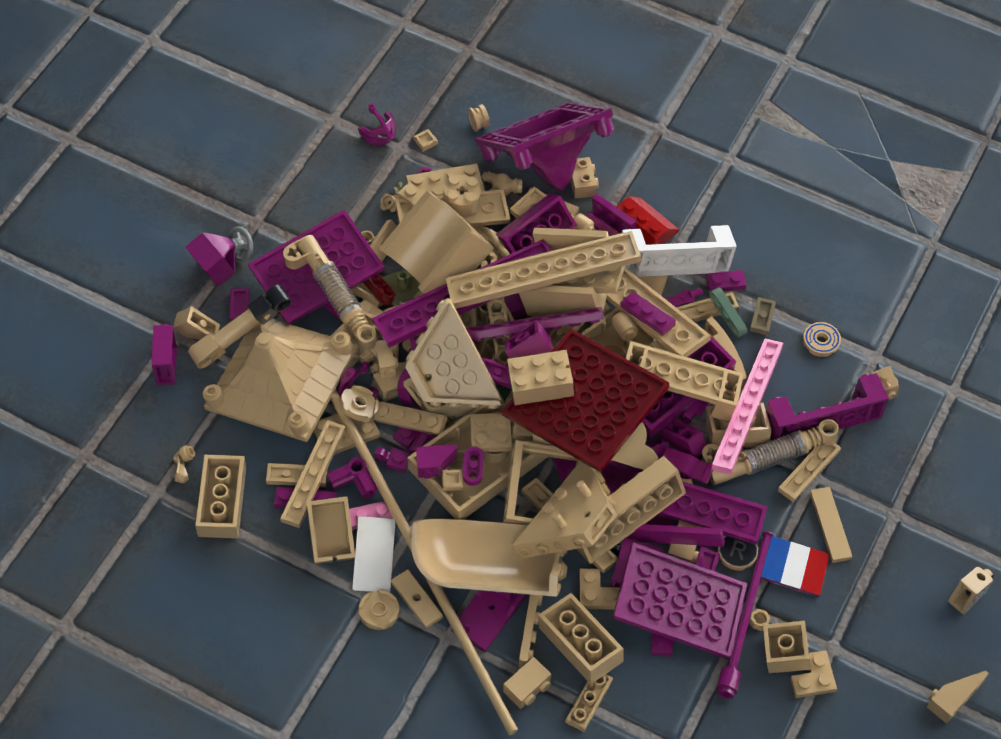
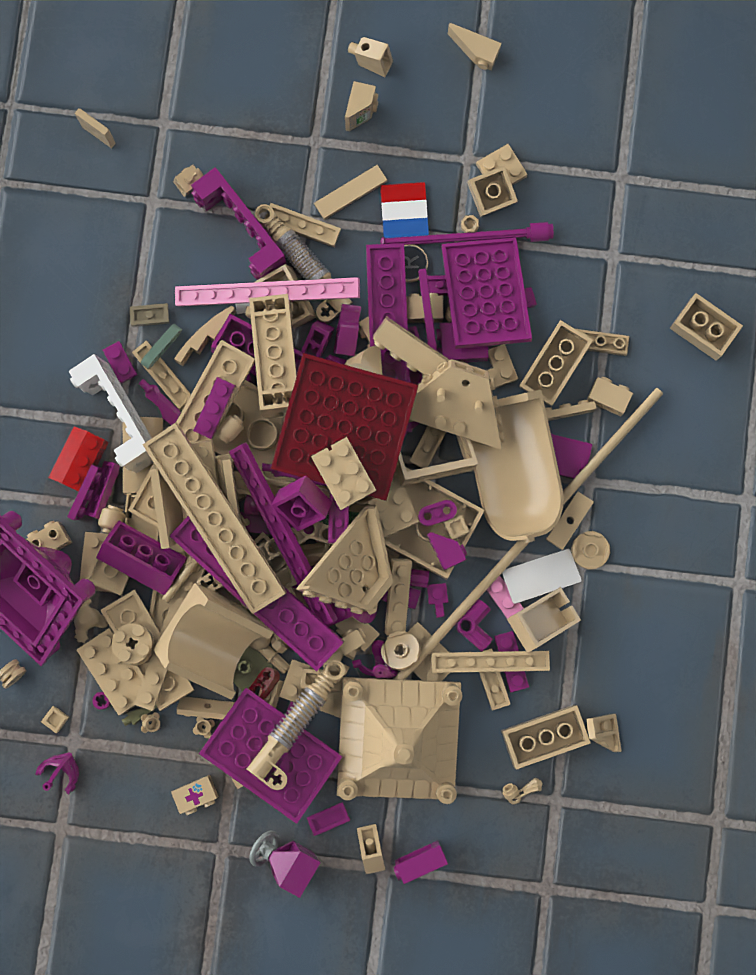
camera: 110 degrees left, 25 degrees up
(200, 549) = (605, 731): none -> tan wing
(260, 311) = (370, 797): tan piece -> none
(311, 211) = (195, 794): none -> tan brick
(824, 330) = (148, 245): tan tile -> none
(918, 554) = (361, 105): none -> tan slope
(962, 324) = (95, 128): none -> tan tile

